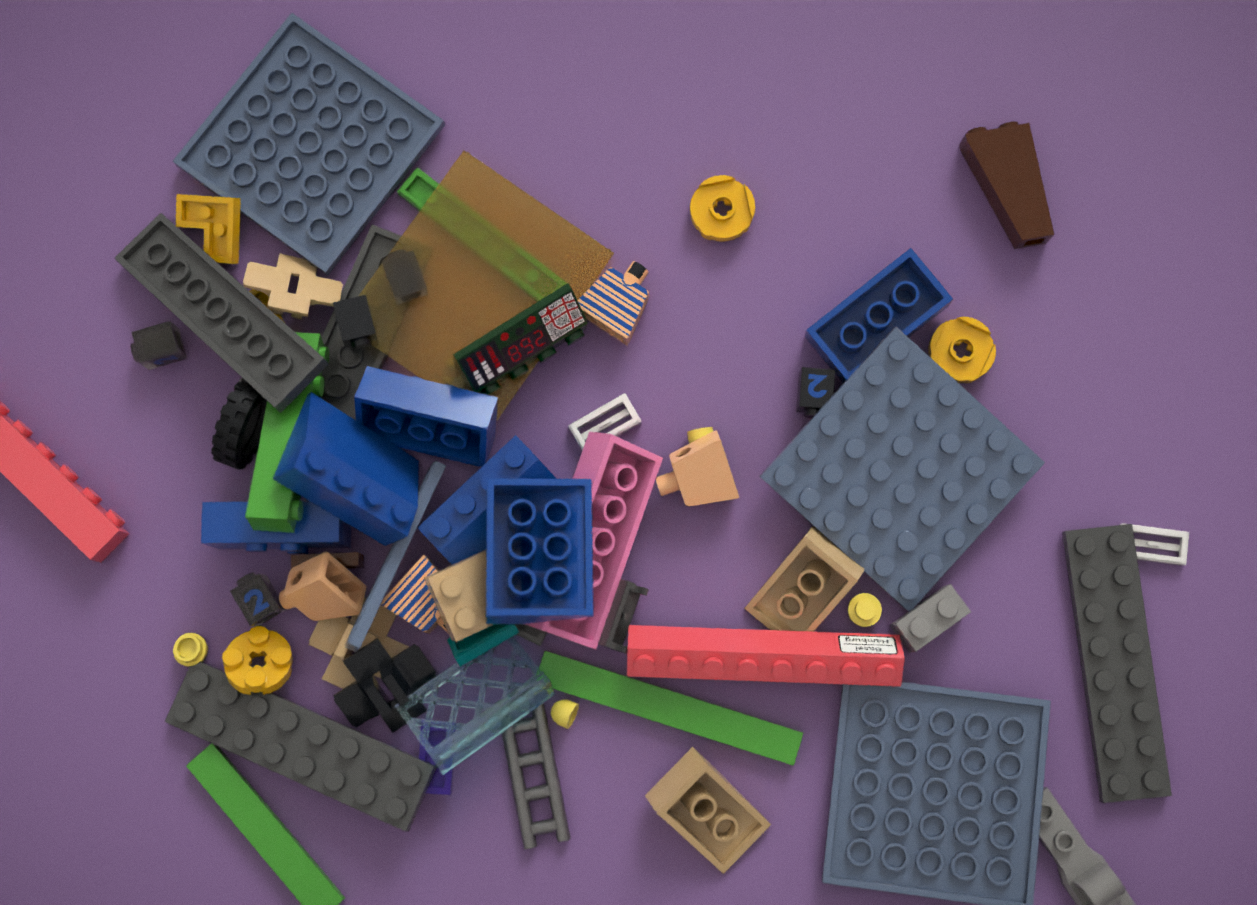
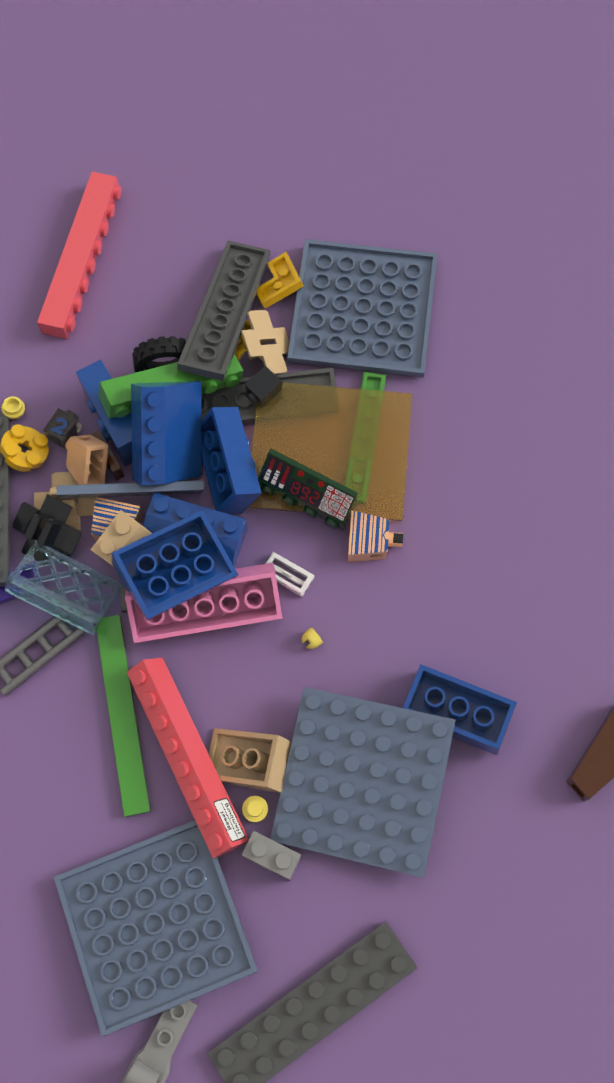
camera: 60 degrees right, 10 degrees down
(158, 345) = (188, 291): clear smoke brick -> none
(404, 276) = (308, 400): clear smoke brick -> none
(480, 642) = (103, 570): teal tile -> none
(564, 712) = (85, 649): light yellow hinge -> none
(621, 615) = (166, 647): dark grey hinge -> none
(700, 473) = (286, 649): light nougat torso -> none
(706, 198) = (472, 584): yellow plate -> none
(707, 810) = (65, 774): tan slope -> none
(814, 389) = (386, 692): black brick -> none
(978, 343) = (481, 769): yellow plate -> none
(1182, 548) = (422, 1017): white tile -> none

